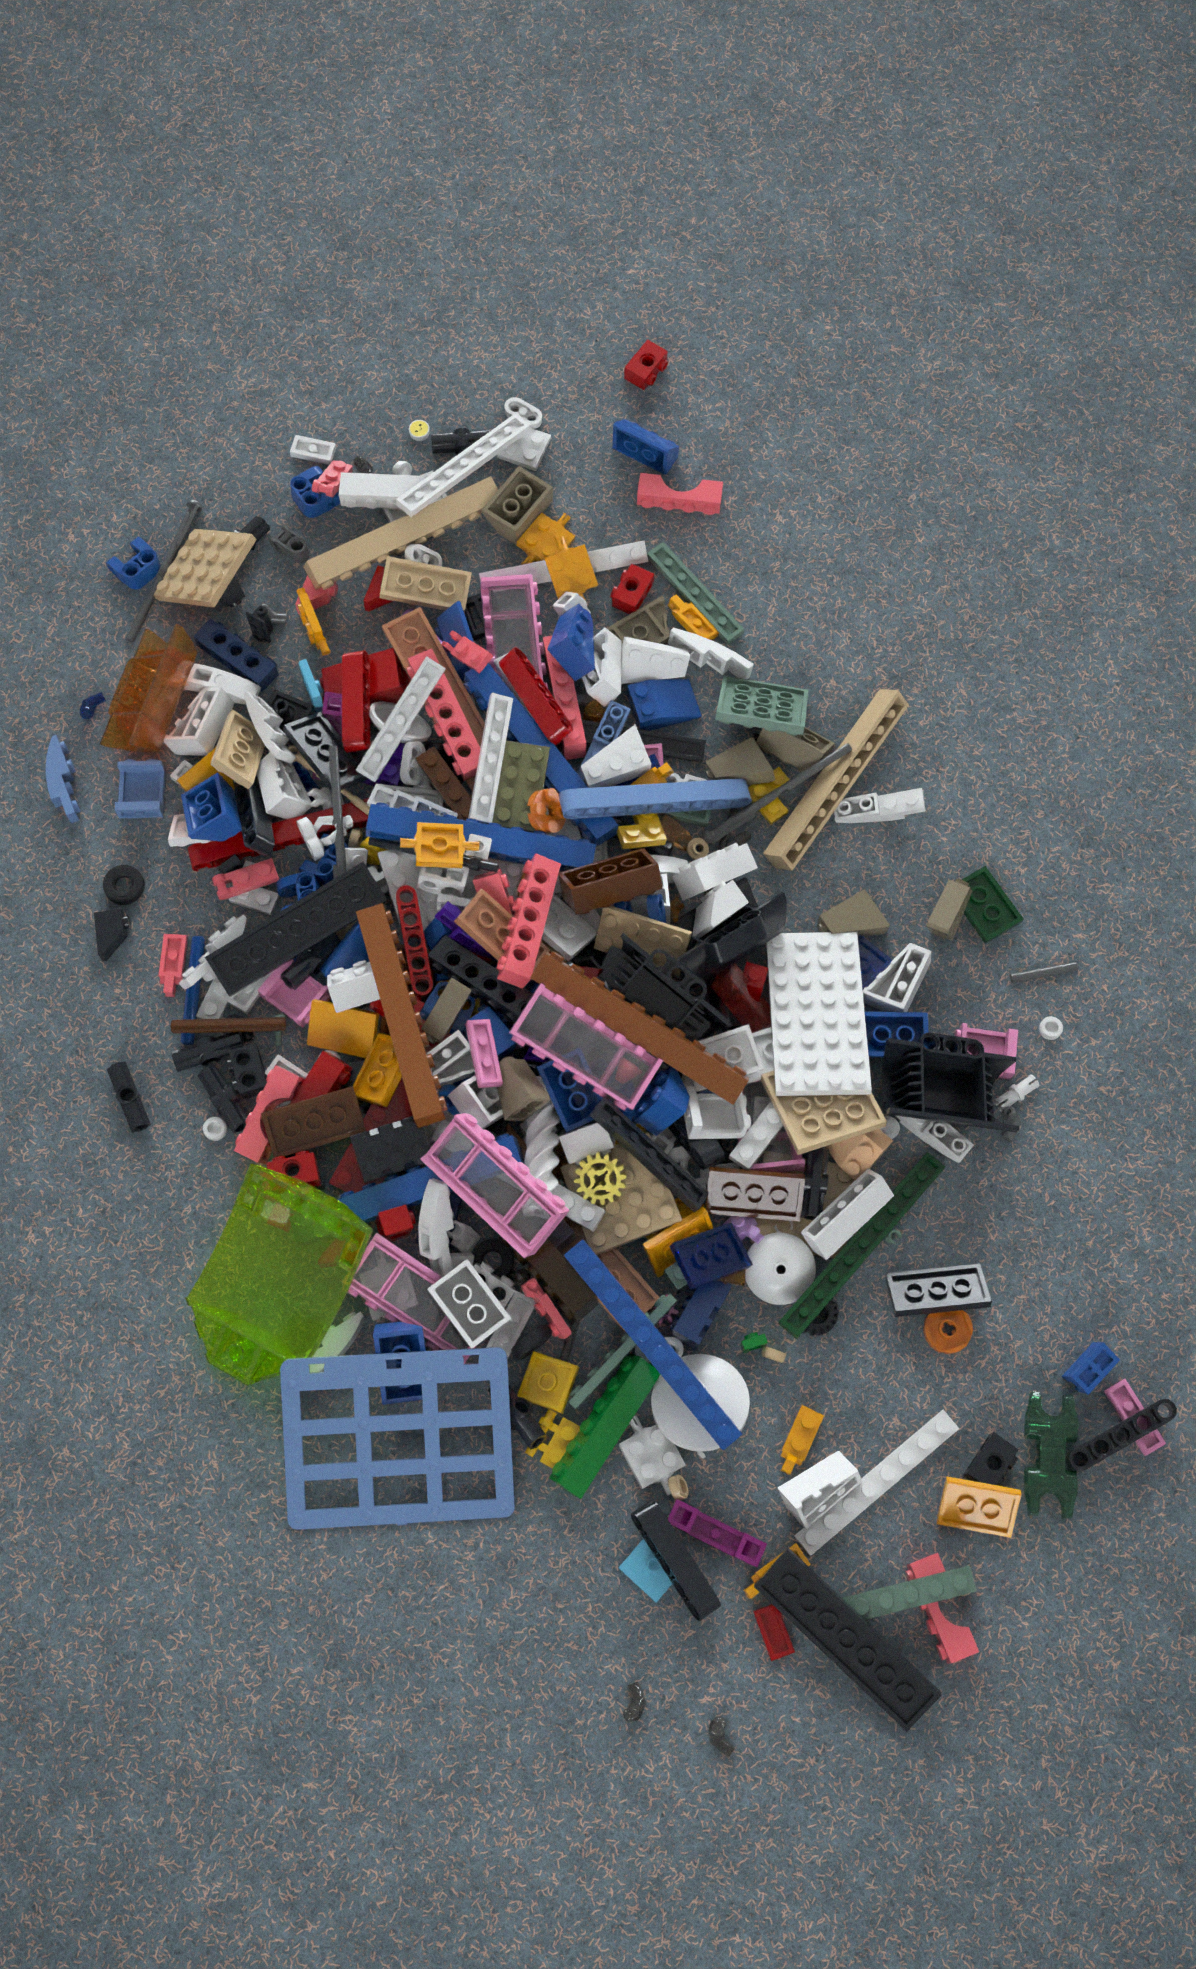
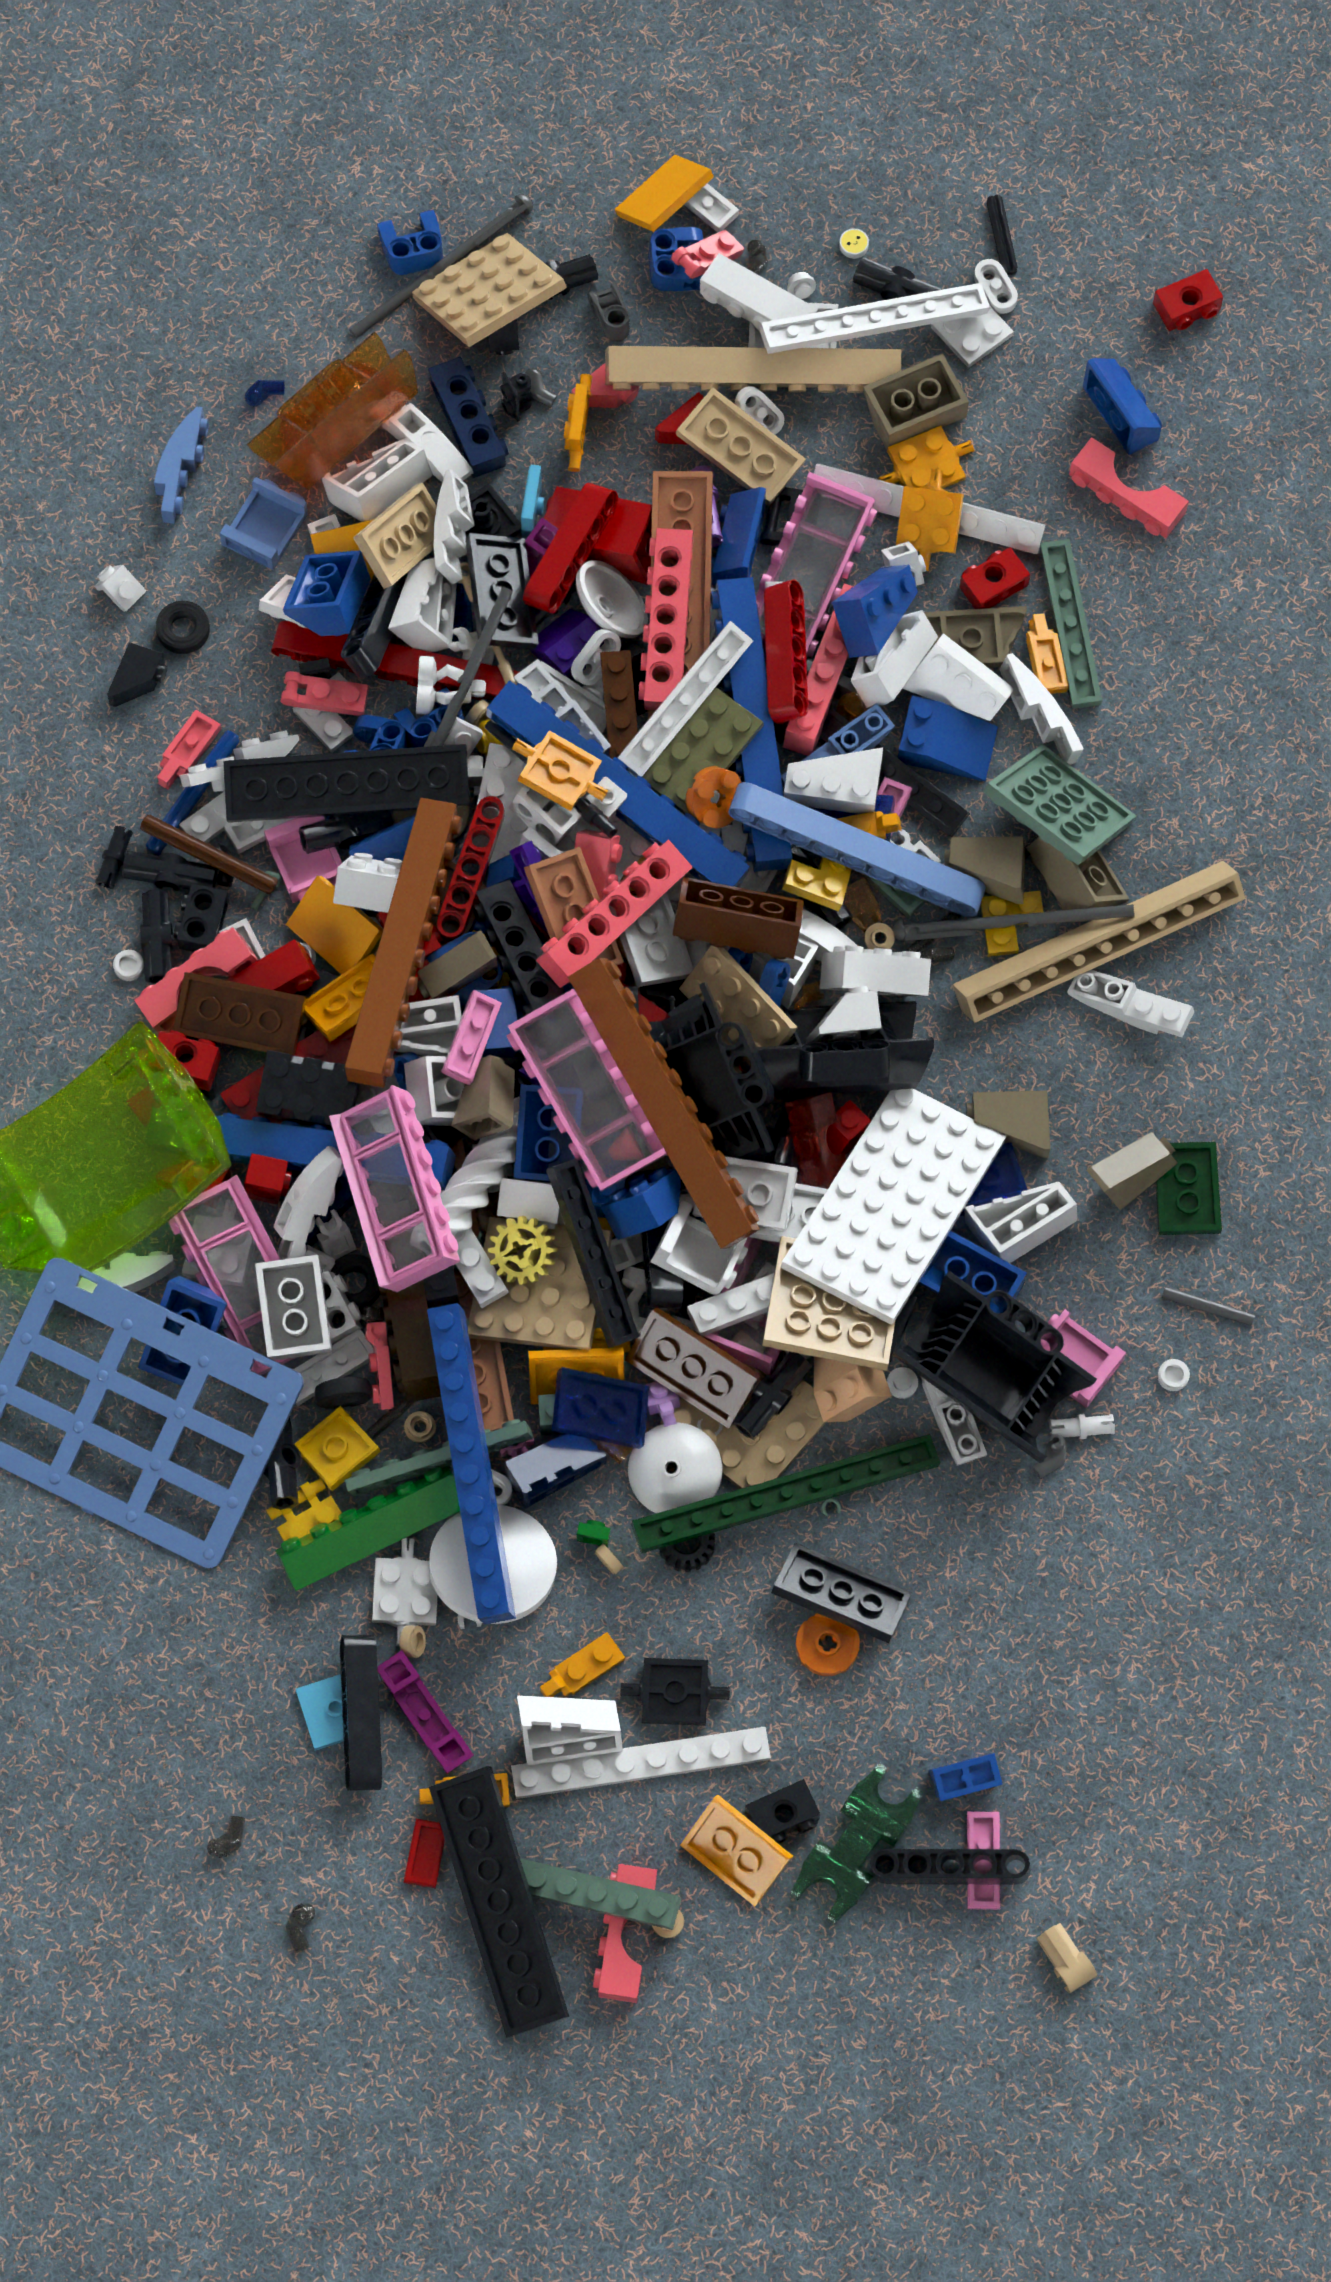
camera: 30 degrees right, 0 degrees up
(65, 879) = (120, 586): none -> white bracket
(134, 1108) = (53, 860): black piece -> none
(163, 1061) = (114, 857): none -> black pin
(282, 455) = (664, 193): none -> light orange tile
(400, 719) = (607, 597): white tile -> none
(468, 652) = (736, 557): coral hinge -> none
(506, 380) = (1002, 234): none -> black axle
(594, 1327) = (420, 1417): none -> tan plate
(847, 1214) = (786, 1448): white brick -> none
(870, 1419) = (675, 1691): none -> black plate

